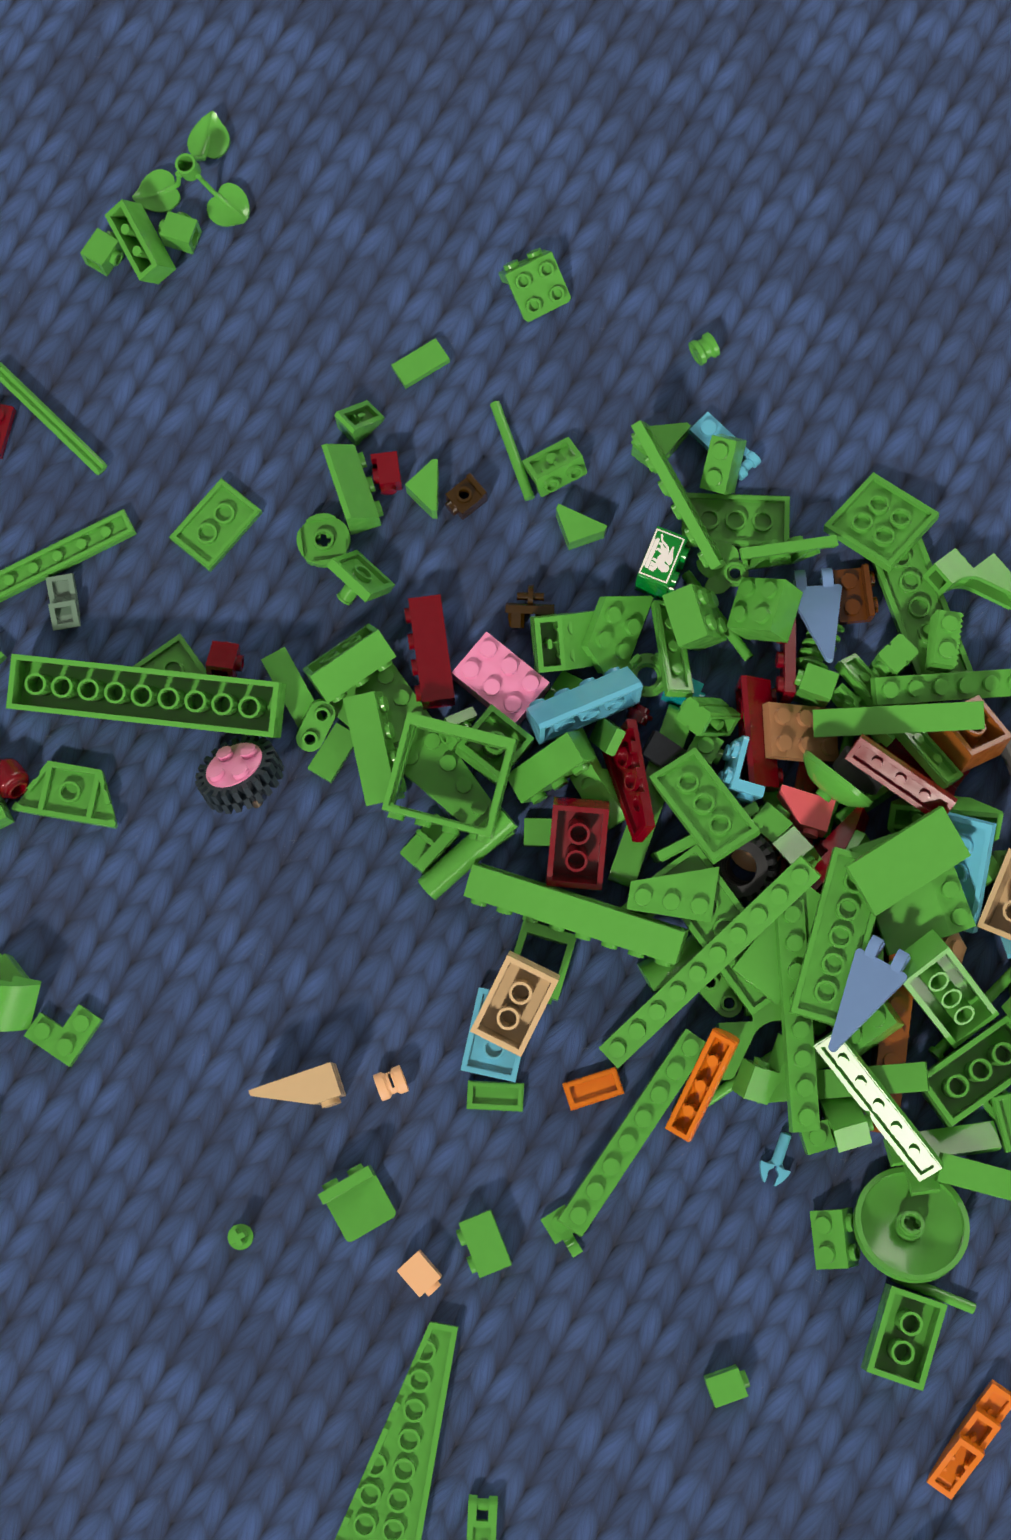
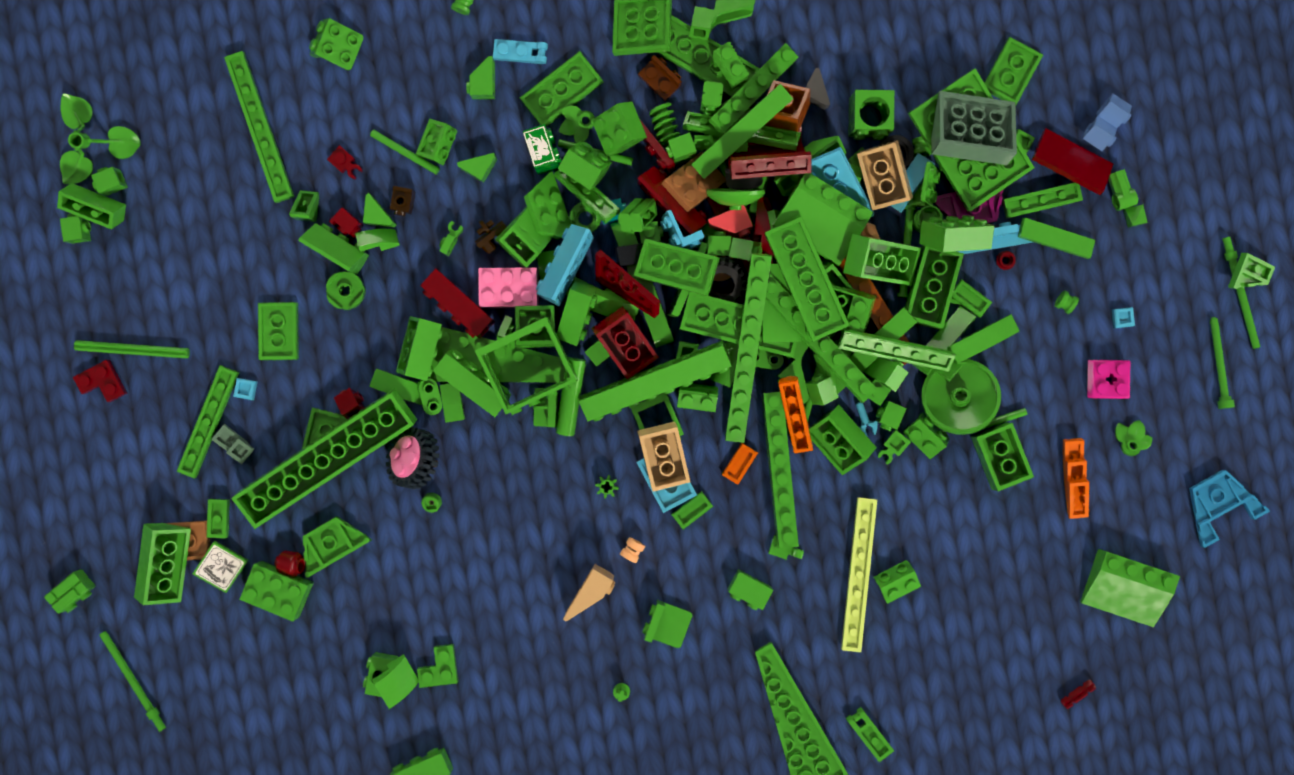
camera: 50 degrees left, 10 degrees up
(127, 556) = (245, 389): none -> medium azure tile
(216, 842) = (431, 502): none -> bright green tile
(359, 577) = (383, 295): bright green tile -> none
(381, 303) = (259, 127): none -> bright green plate
(411, 518) = (377, 237): none -> bright green slope
(415, 987) = (611, 483): none -> bright green gear
(420, 363) = (311, 144): bright green tile -> none
(420, 1274) = (730, 632): light nougat brick -> none
(438, 407) = (343, 161): none -> dark red plate
(476, 581) = (449, 242): none -> bright green plate
(607, 736) = (592, 271): bright green tile -> none
(608, 972) = (698, 397): none -> bright green brick
(623, 1335) = (859, 574): none -> yellowish green plate
(640, 713) = (599, 243): dark red plate -> none
(662, 1382) = (897, 581): none -> bright green bracket
(672, 487) = (510, 101): bright green plate -> none
(676, 895) = (702, 327): bright green wing -> none
(723, 464) = (528, 63): bright green brick -> none
(727, 1385) = (931, 556): bright green brick -> none
(730, 1159) = (841, 440): none -> bright green slope
(784, 553) = (608, 80): bright green wing -> none
(790, 1216) = (895, 444): none -> bright green plate
(810, 1178) = (890, 415): none -> bright green brick
(820, 609) = (649, 103): medium blue flag -> none
(867, 989) = (844, 296): medium blue flag -> none
(907, 860) = (810, 208): bright green tile -> none

